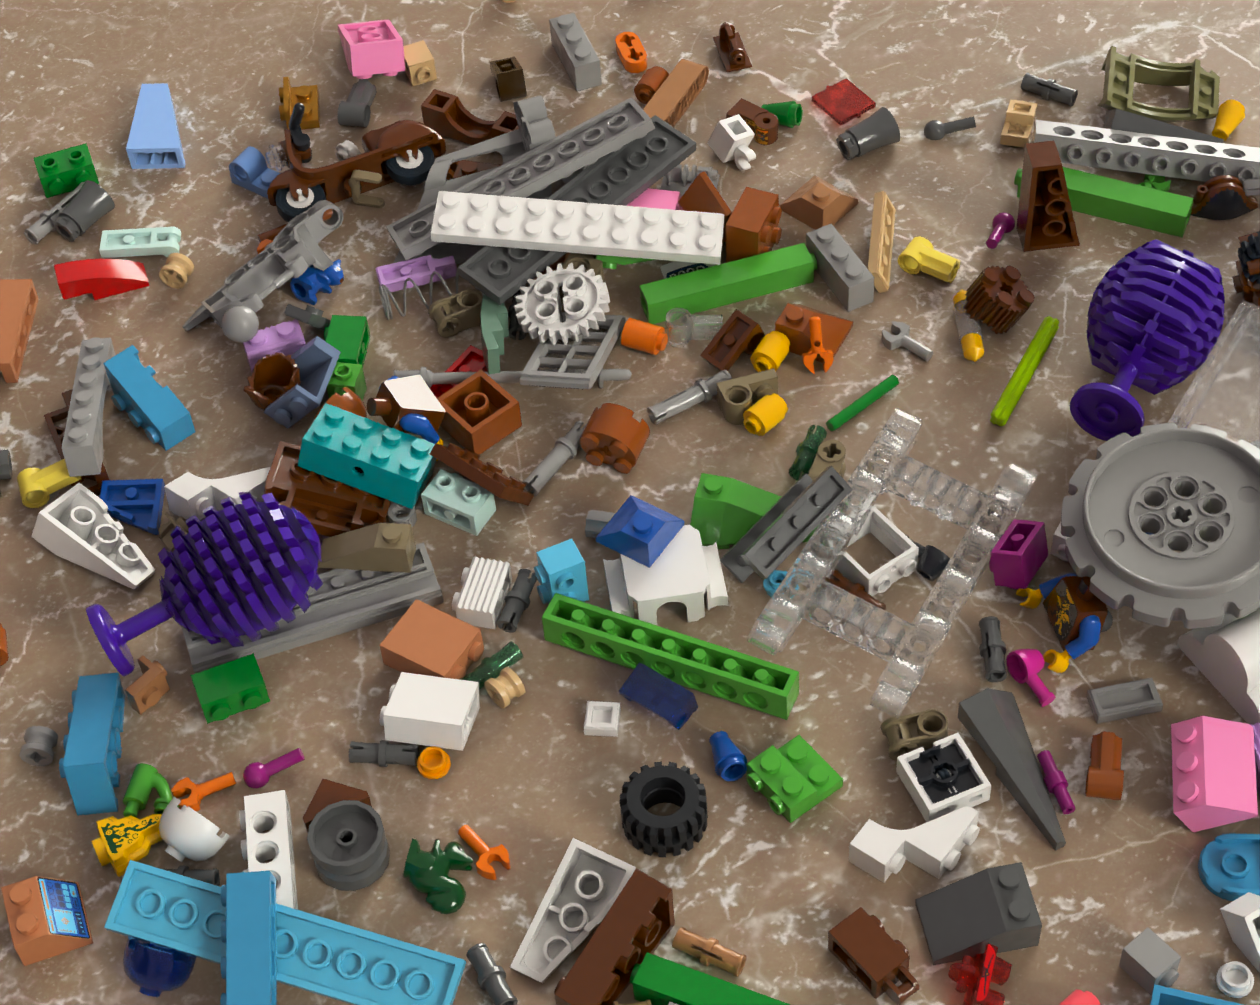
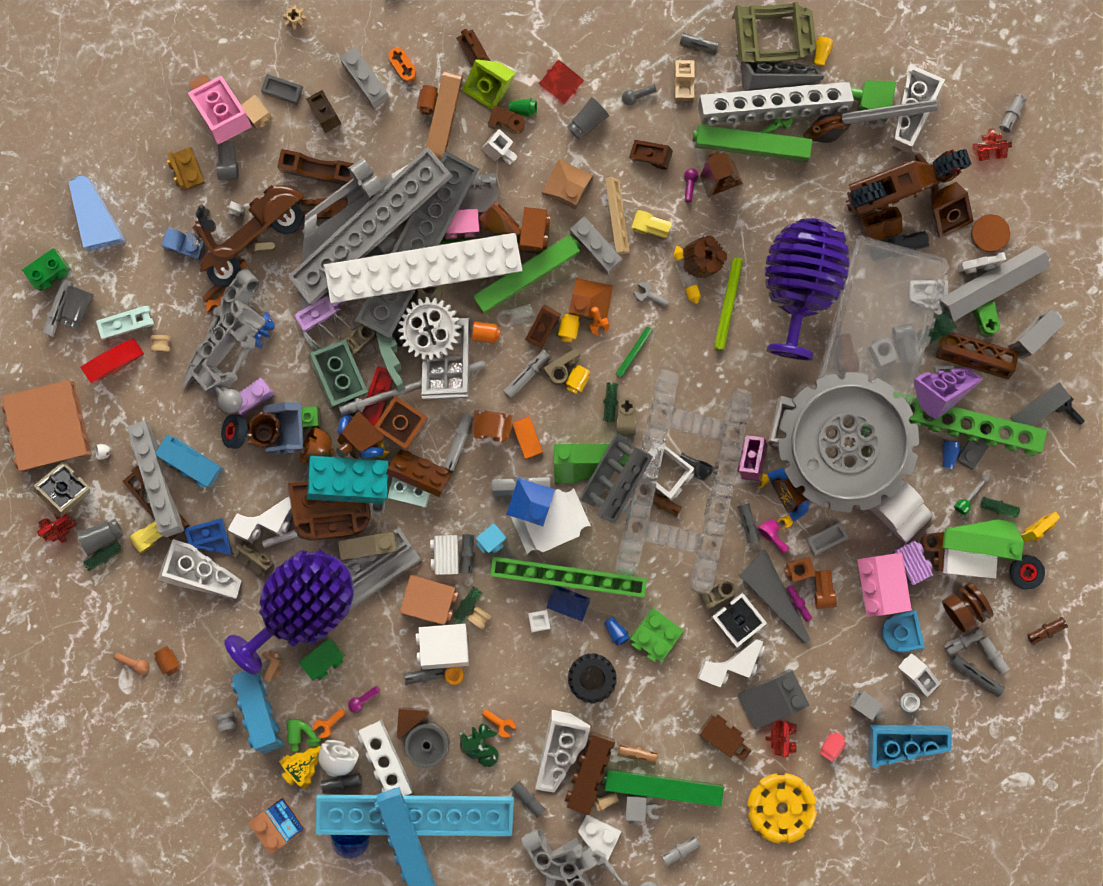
camera: 20 degrees left, 35 degrees up
(31, 375) = (102, 451): none -> white hinge
(230, 378) = (234, 431): none -> black bush
(309, 316) = (268, 370): dark grey plate -> none
(349, 336) = (296, 383): green brick -> none
(407, 336) = (337, 374): none -> sand green slope
(462, 52) = (281, 89): none -> dark grey tile
(664, 475) = (527, 437): none -> orange tile
(741, 76) = (488, 82): none -> lime slope
(958, 185) = (653, 153): none -> reddish brown plate
(1071, 717) = (808, 570): none -> dark orange brick

